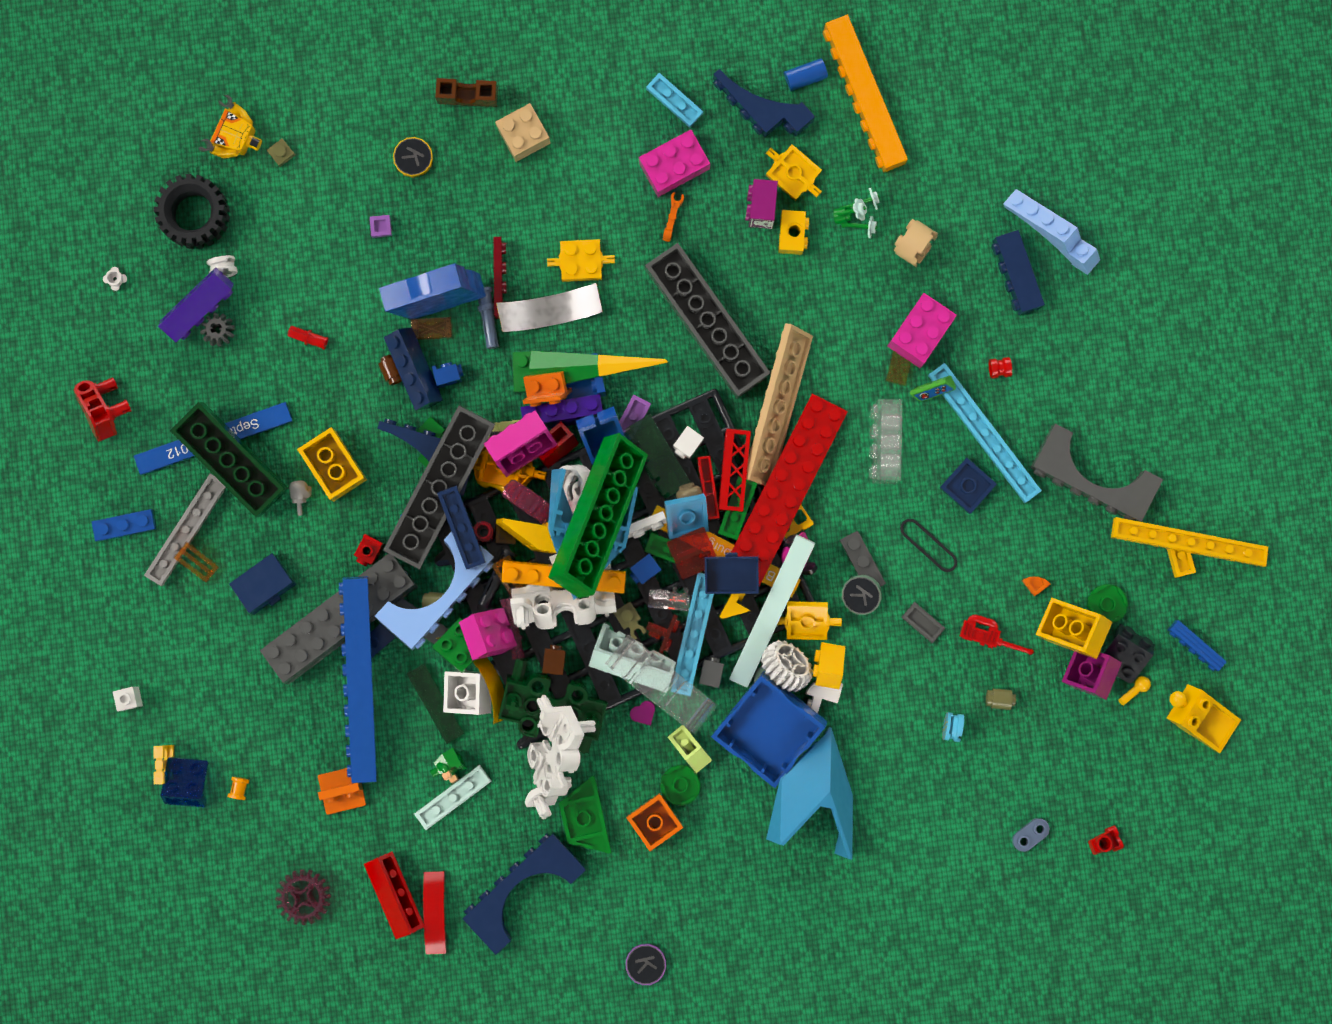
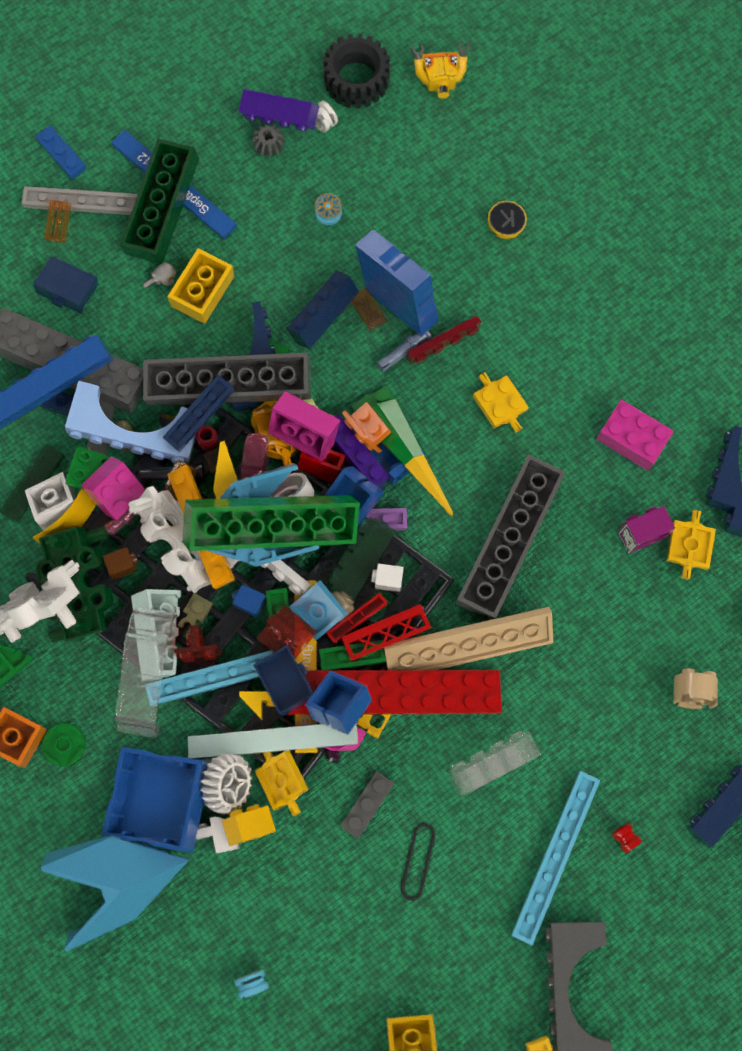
camera: 60 degrees right, 10 degrees down
(99, 415) = (145, 76): red piece -> none
(114, 272) = (267, 39): white plate -> none
(281, 152) = (447, 116): olive plate -> none
(307, 337) = (302, 214): red axle -> none
(316, 311) = (327, 209): none -> medium azure wheel
(375, 547) = (148, 352): red brick -> none
(380, 226) = (432, 223): medium lavender plate -> none
(389, 370) = (309, 291): reddish brown brick -> none
(447, 374) = (334, 341): blue brick -> none
(454, 93) = (594, 243): reddish brown arch -> none
(522, 132) = (582, 294): tan brick -> none
(549, 309) = (439, 396): flat silver sticker -> none
(643, 713) = (112, 673): magenta tile -> none
(669, 600) = (231, 636): clear plate -> none
(672, 217) = (569, 463): orange piece -> none
(674, 100) = (690, 407): medium azure plate -> none
(689, 748) = (100, 735): yellowish green slope -> none
(711, 672) = (185, 716): dark grey brick -> none
(775, 539) = (338, 702): none -> blue piece
(788, 243) = (645, 564): yellow brick -> none
(844, 213) = (694, 618): plant -> none
(861, 594) = (334, 820): black tile -> none
(898, 370) = (574, 739): tile -> none
(922, 330) = (617, 741): dark pink brick -> none
(923, 622) = (340, 897): dark grey tile -> none
(933, 388) = (569, 783): slope -> none
(968, 485) = (496, 868): dark blue plate -> none
(989, 637) = (359, 972): red piece -> none
(1000, 699) = (304, 1018): olive brick -> none
(1035, 584) = (437, 991): orange tile -> none

